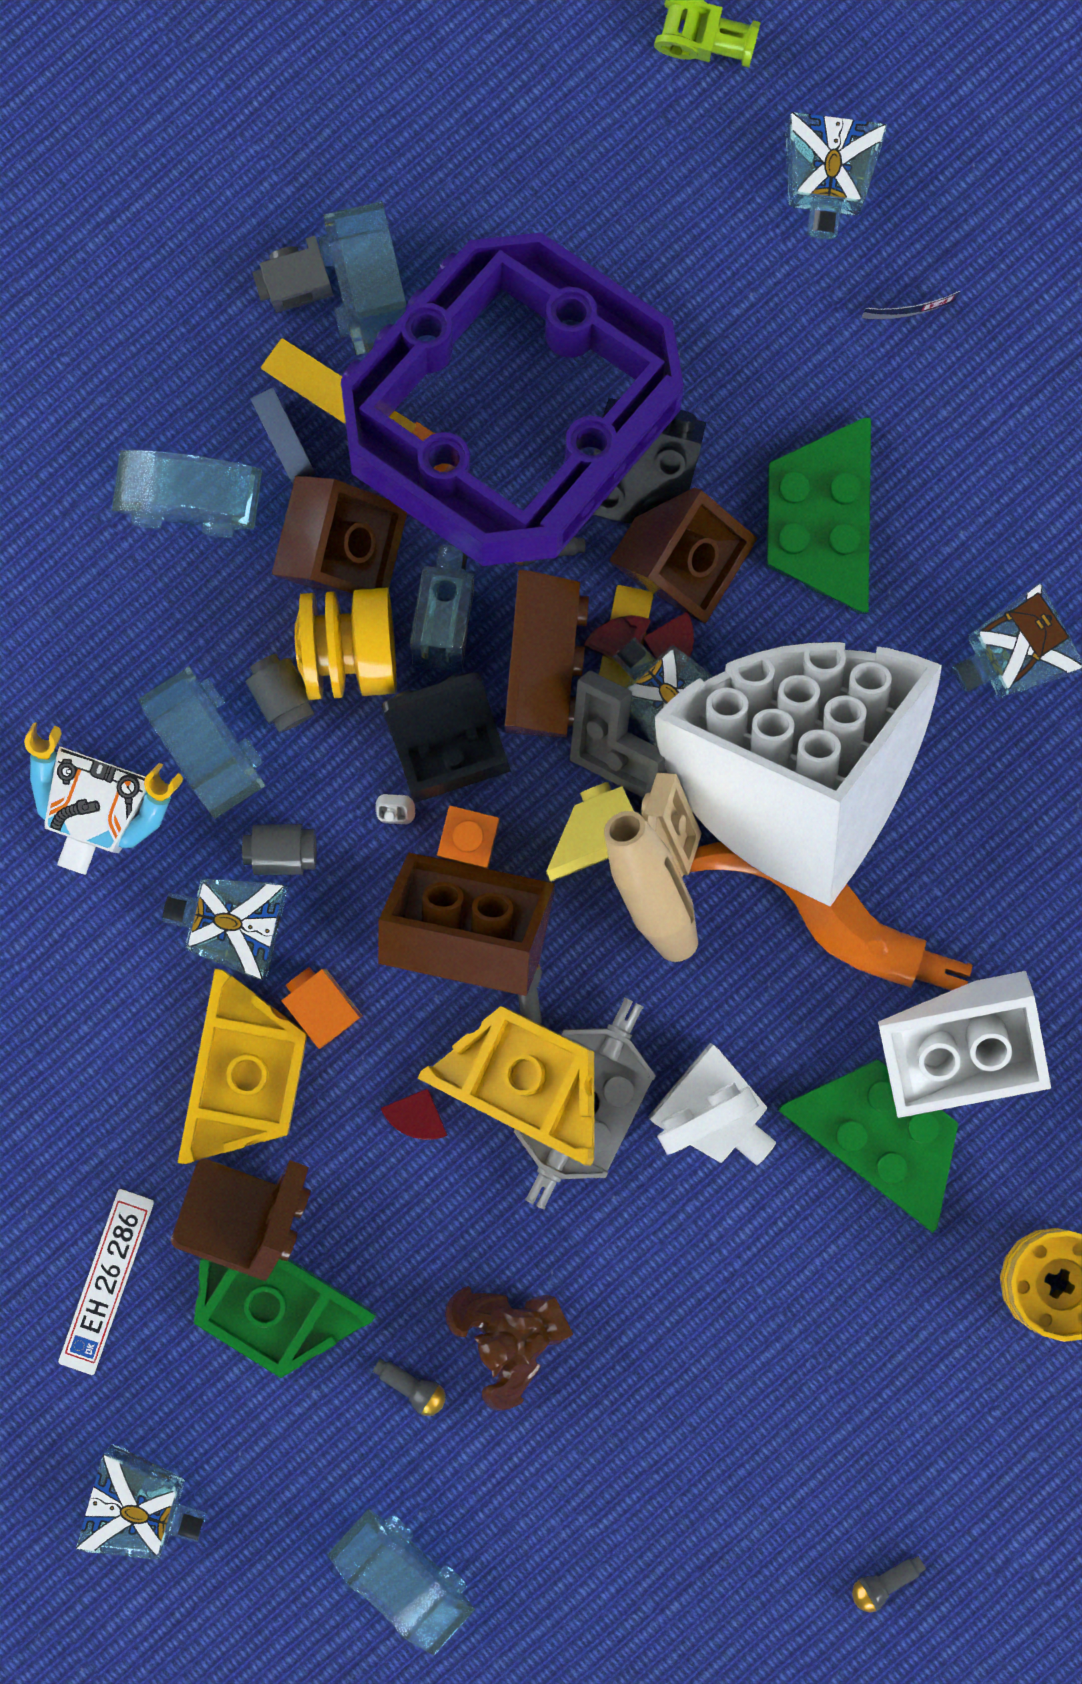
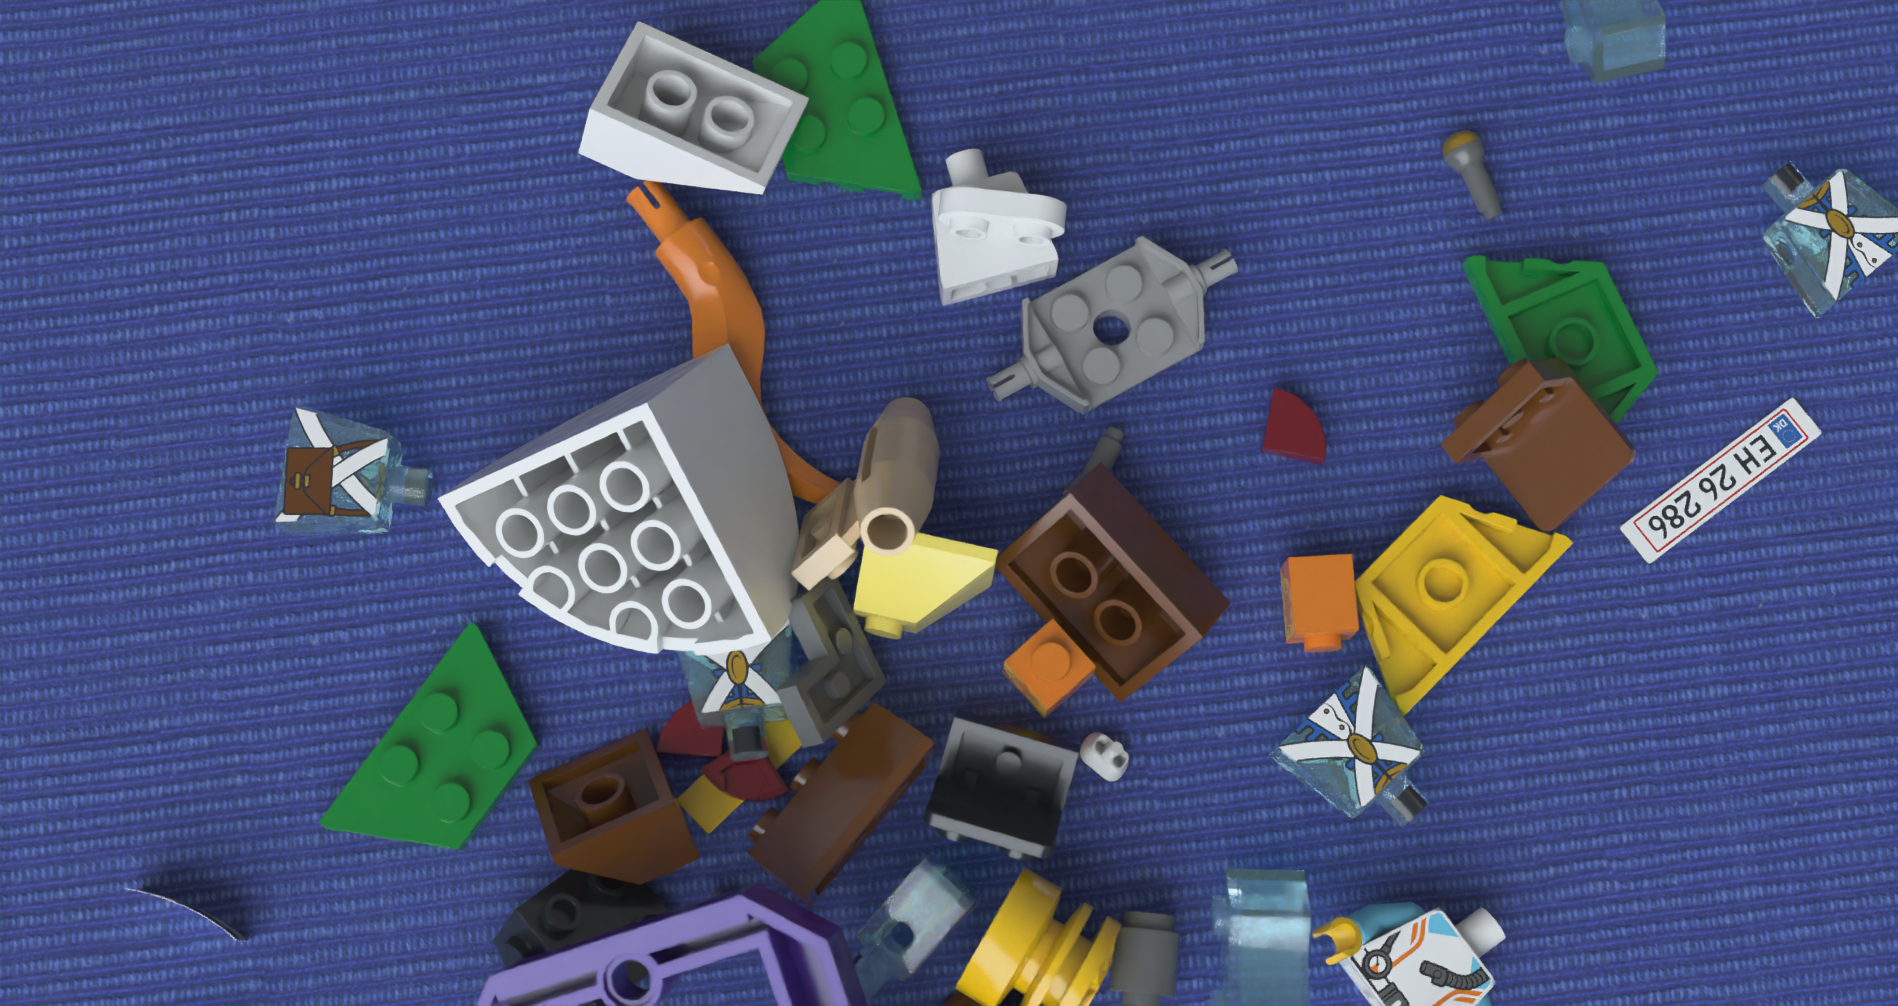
camera: 145 degrees left, 10 degrees down
(280, 849) = (1255, 793): dark grey brick -> none
(509, 1340) = (1337, 151): reddish brown animal -> none
(524, 1080) = (1159, 382): yellow wing -> none

